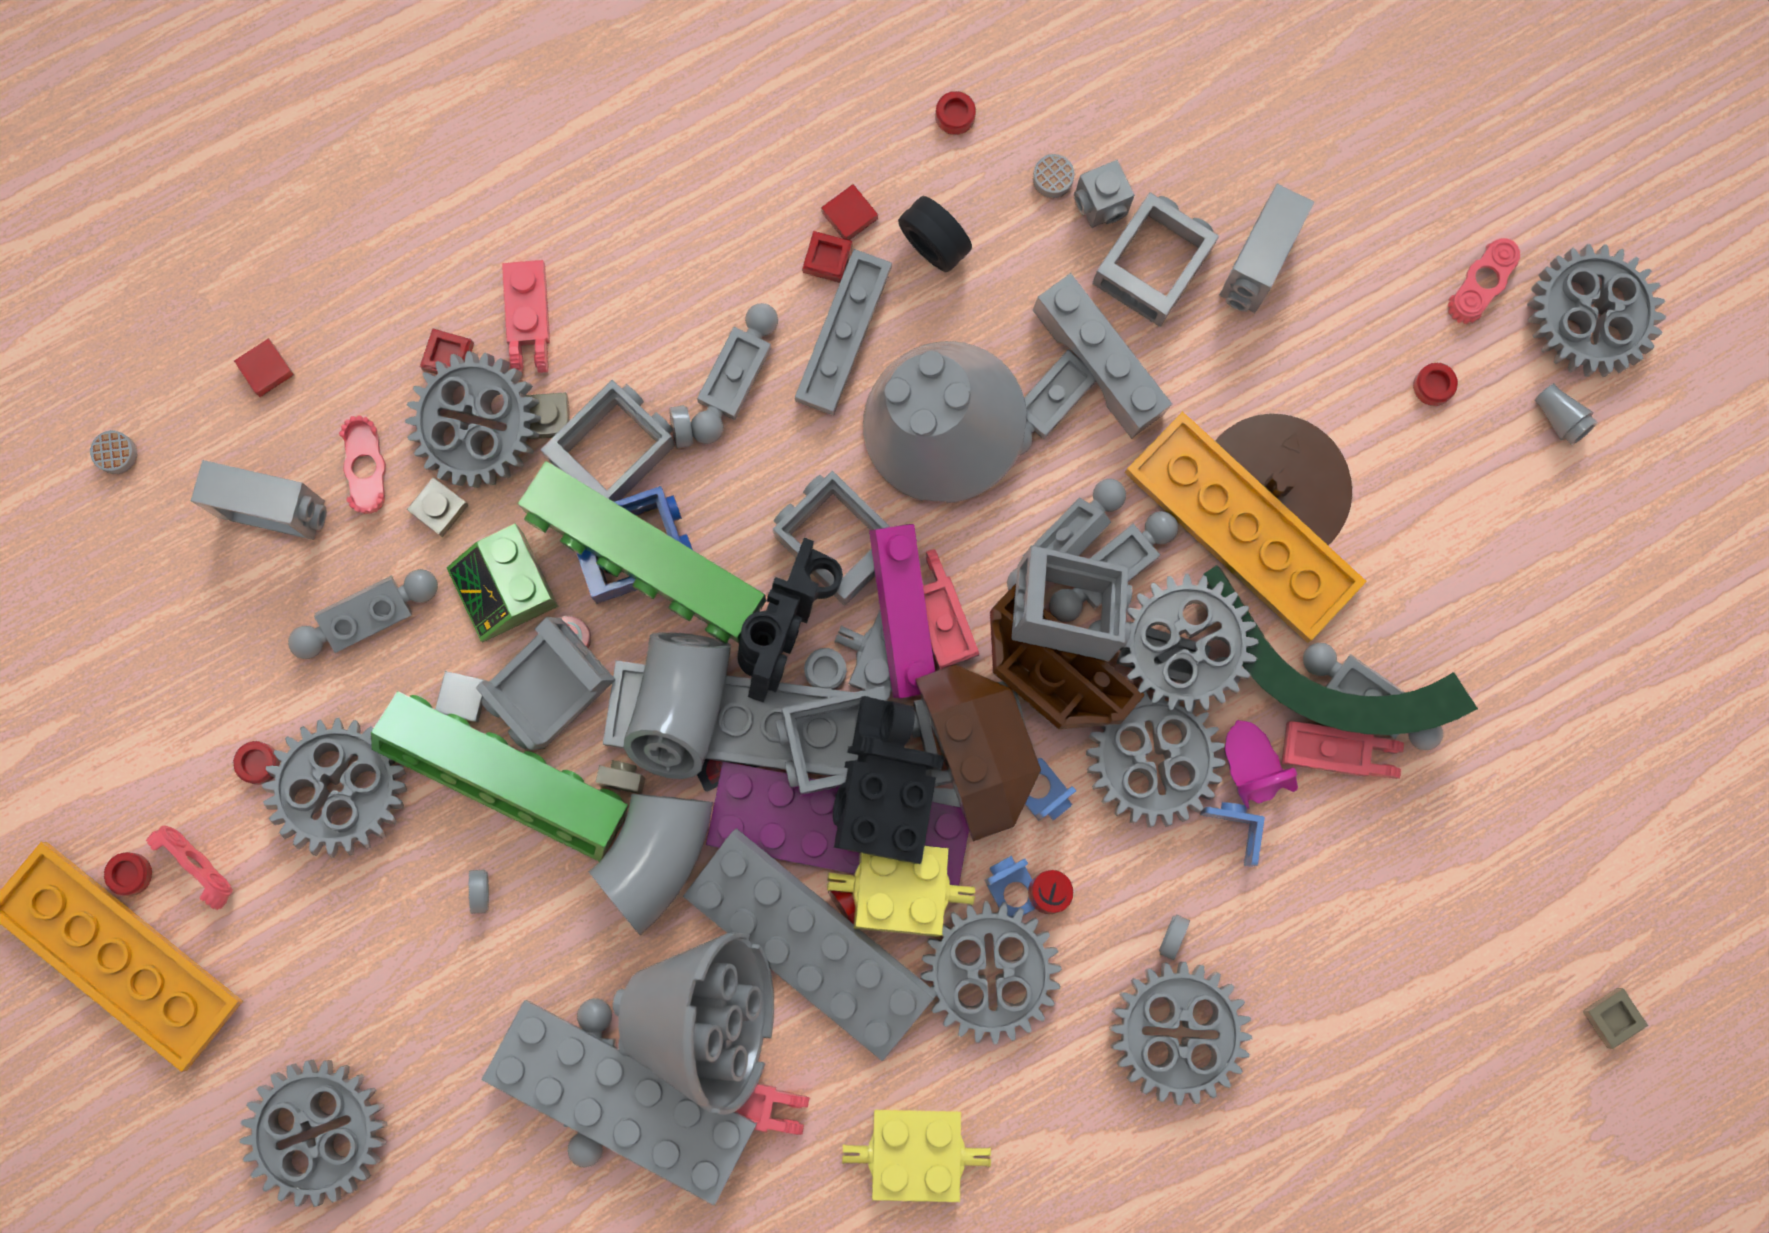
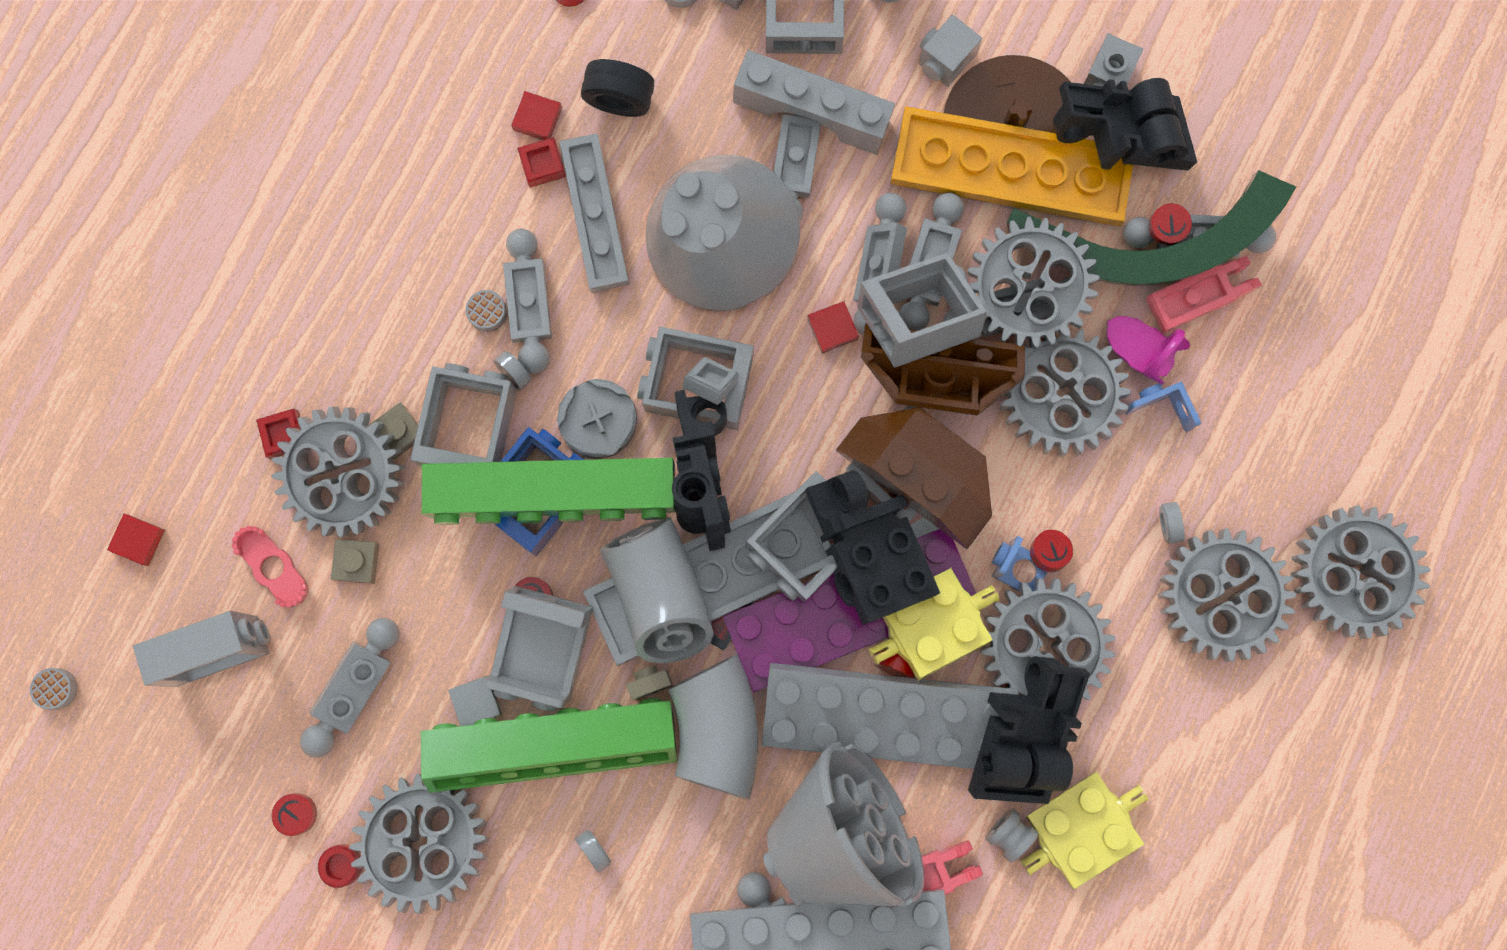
camera: 25 degrees left, 0 degrees up
(246, 693) = (294, 814): none -> red tile
(501, 583) = (447, 589): slope -> none
(526, 311) = (324, 357): coral hinge -> none
(693, 359) = (486, 310): none -> tile
(727, 516) = (597, 418): none -> light grey tile
(825, 669) = (755, 489): light grey tile -> none
(844, 547) = (710, 380): none -> light grey tile
(848, 1117) = (1012, 835): none -> light grey wheel
(871, 657) = (789, 446): light grey plate -> none
(902, 607) = (787, 400): dark pink plate -> none
(918, 1039) = (1027, 743): none -> black plate
(947, 623) = (819, 386): coral hinge -> none
(988, 568) = (833, 327): none -> red tile
(1055, 801) = (1008, 476): medium blue bracket -> none
(1255, 386) = (948, 50): none -> light grey brick
(1346, 1070) = (1373, 540): none -> light grey gear
(1349, 669) = (1170, 224): none -> red tile
(1377, 561) = (1136, 124): none -> black plate
(1393, 496) = (1114, 61): none -> light grey brick

